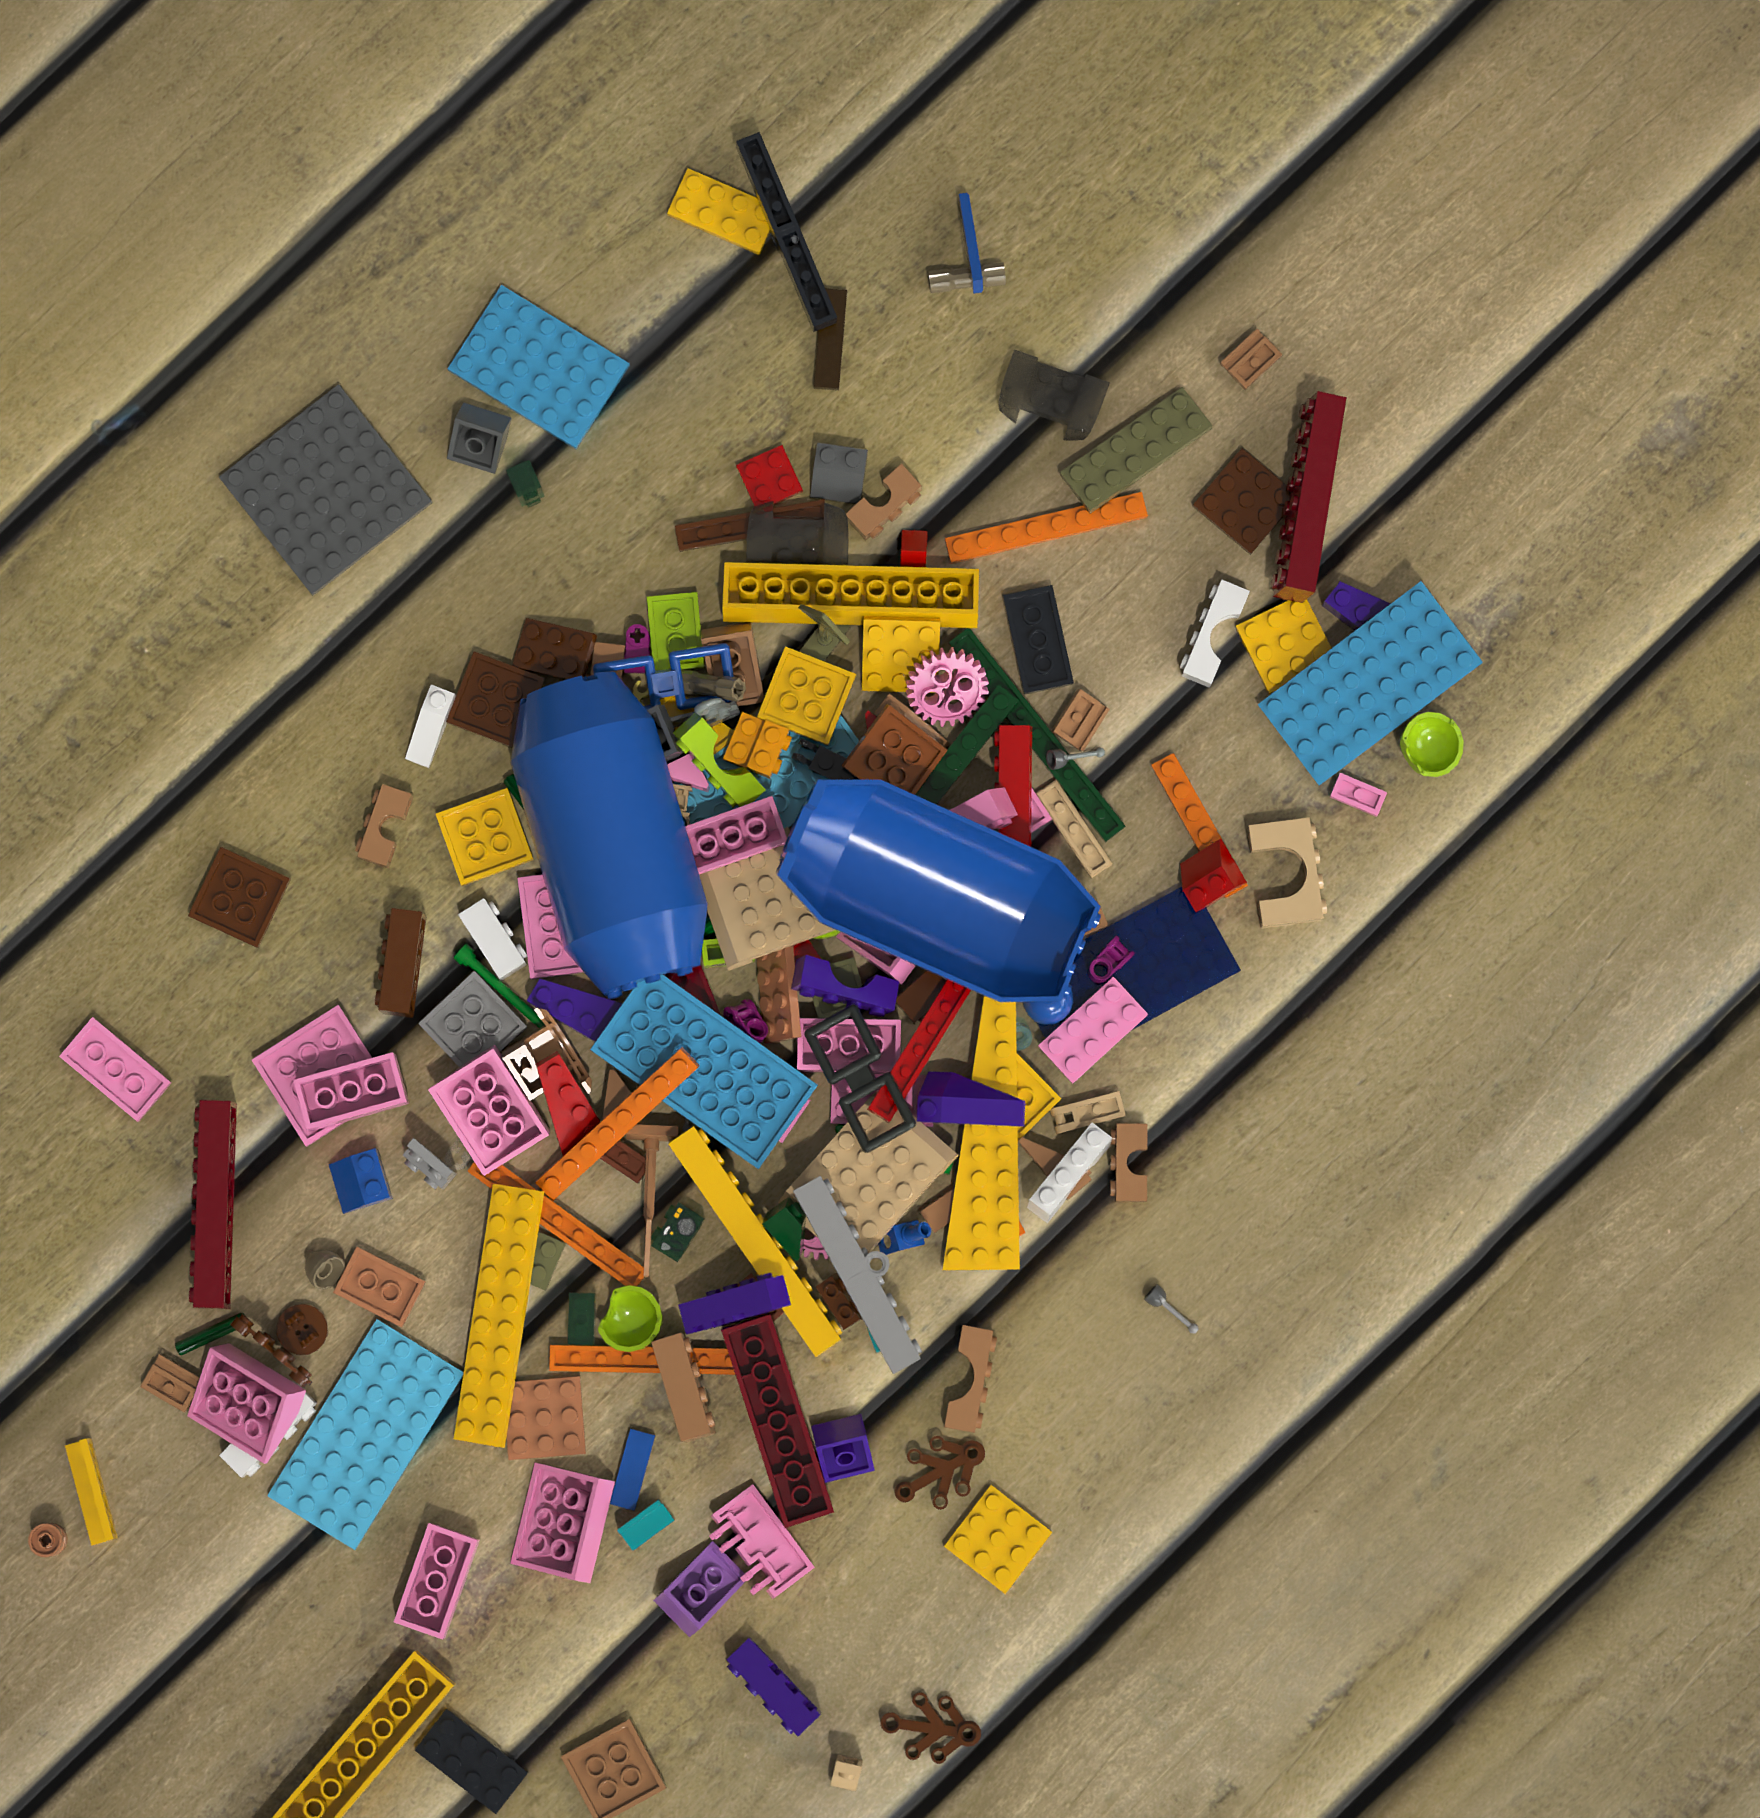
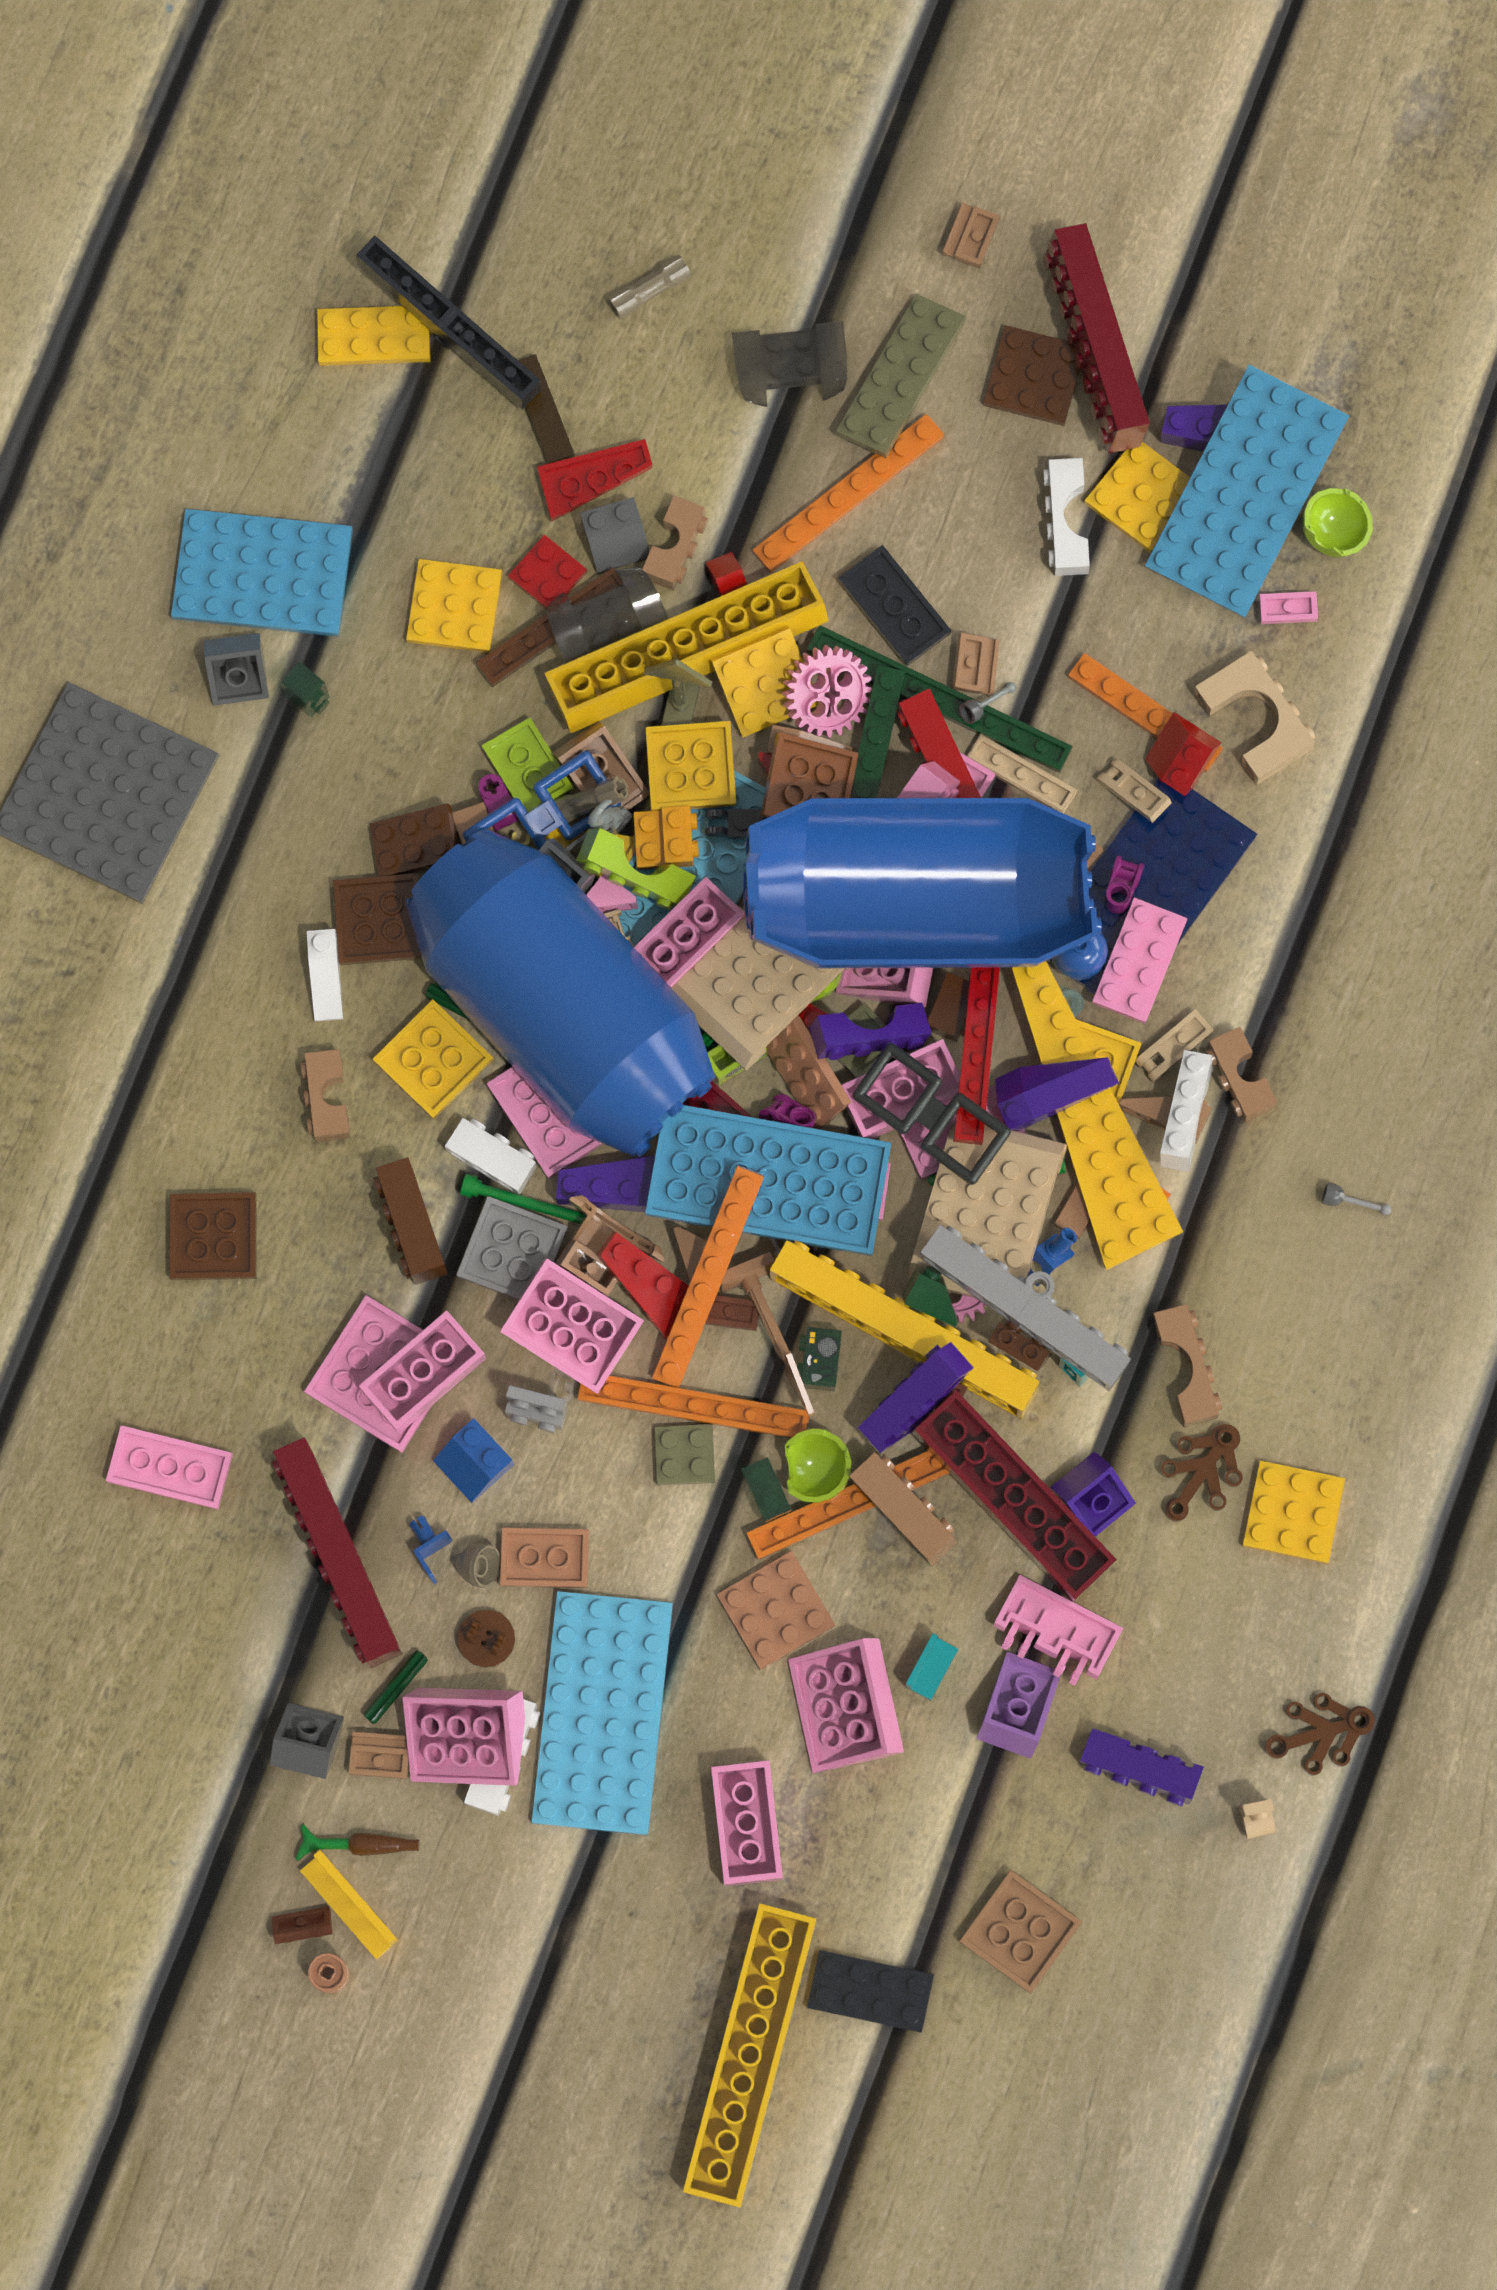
camera: 20 degrees left, 5 degrees down
(45, 1490) = (302, 1925): none -> copper plate
(119, 1343) = (306, 1741): none -> dark grey slope
(120, 1446) = (358, 1844): none -> reddish brown piece
(292, 1232) = (429, 1542): none -> blue bracket
(299, 1375) = (507, 1681): reddish brown plant -> none
(498, 1315) = (680, 1527): yellow plate -> none
(632, 1469) = (890, 1619): blue tile -> none
(681, 469) = (454, 606): none -> yellow plate
(840, 413) = (586, 477): none -> red wing
(971, 243) = (637, 249): blue tile -> none
(1157, 887) = (1134, 790): none -> tan plate

